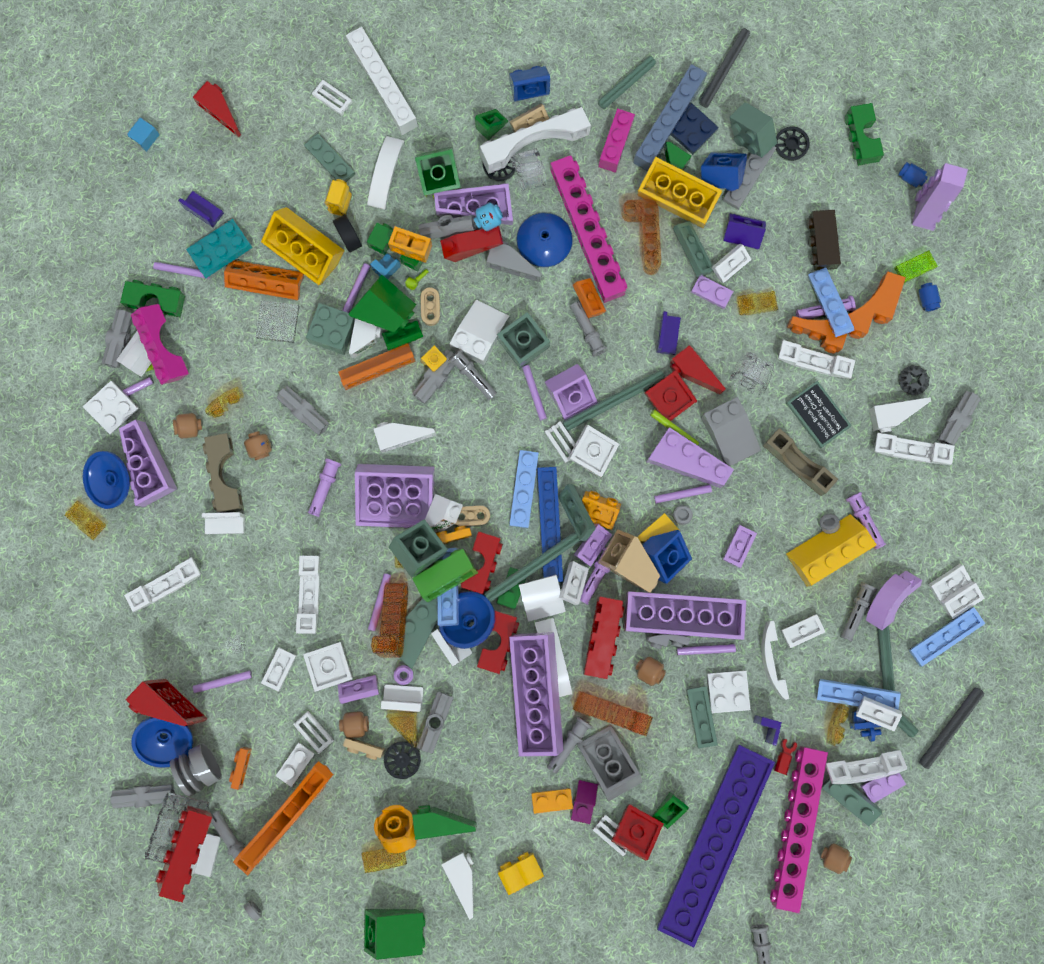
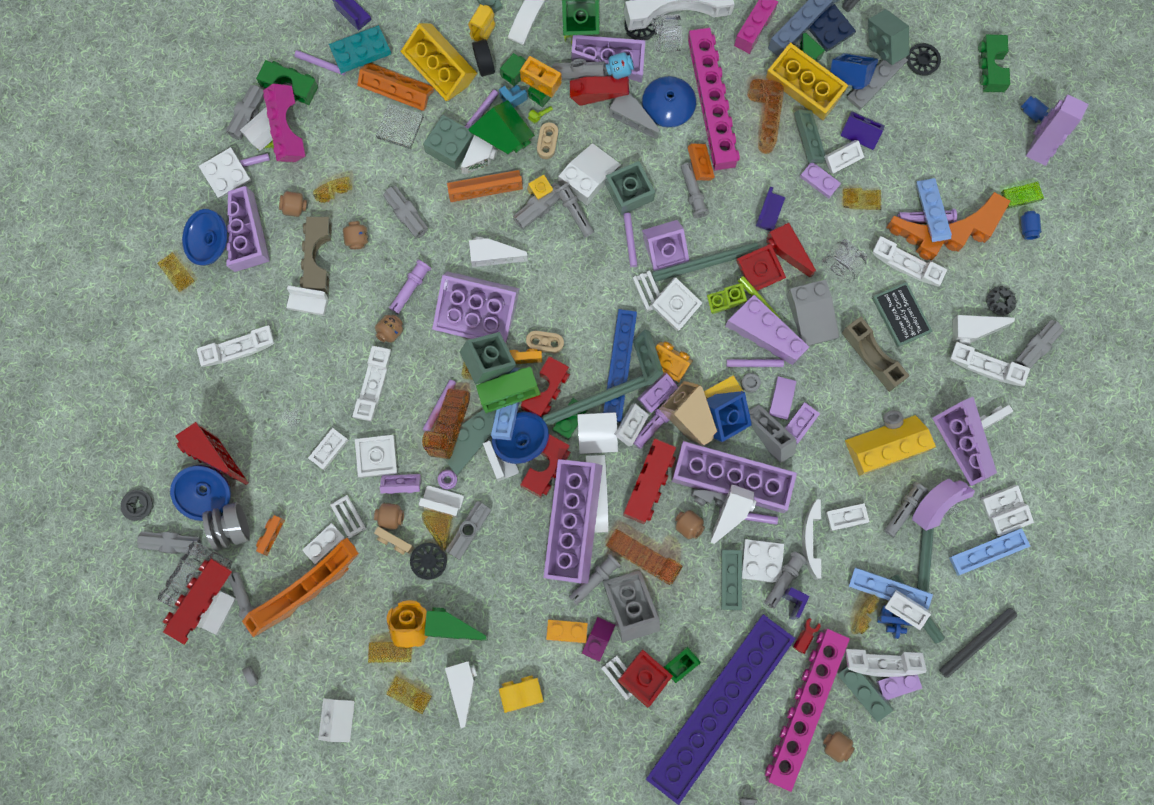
camera: 10 degrees right, 5 degrees down
(95, 772) = (132, 497): none -> dark grey gear
(222, 681) = (271, 450): lavender bar -> none
(312, 534) = (389, 328): none -> medium nougat head
(346, 935) = (336, 720): none -> white panel
(393, 933) = (383, 726): green slope -> none
(409, 333) = (515, 161): green plate -> none
(411, 895) = (408, 694): none -> clear yellow slope
(442, 513) = (519, 332): white slope -> none
(524, 489) = (601, 327): light blue plate -> none
(642, 435) = (726, 299): none -> lime slope
(691, 652) = (734, 511): none -> white slope
(713, 563) = (772, 434): none -> light grey slope
(716, 524) = (782, 398): none -> lavender slope
(757, 698) = (789, 572): none -> light grey pin
(823, 240) = (937, 152): dark brown brick -> none
(864, 510) = (929, 413): lavender pin -> none
(905, 531) = (967, 440): none -> lavender wedge
(931, 497) = (997, 415): none -> white plate

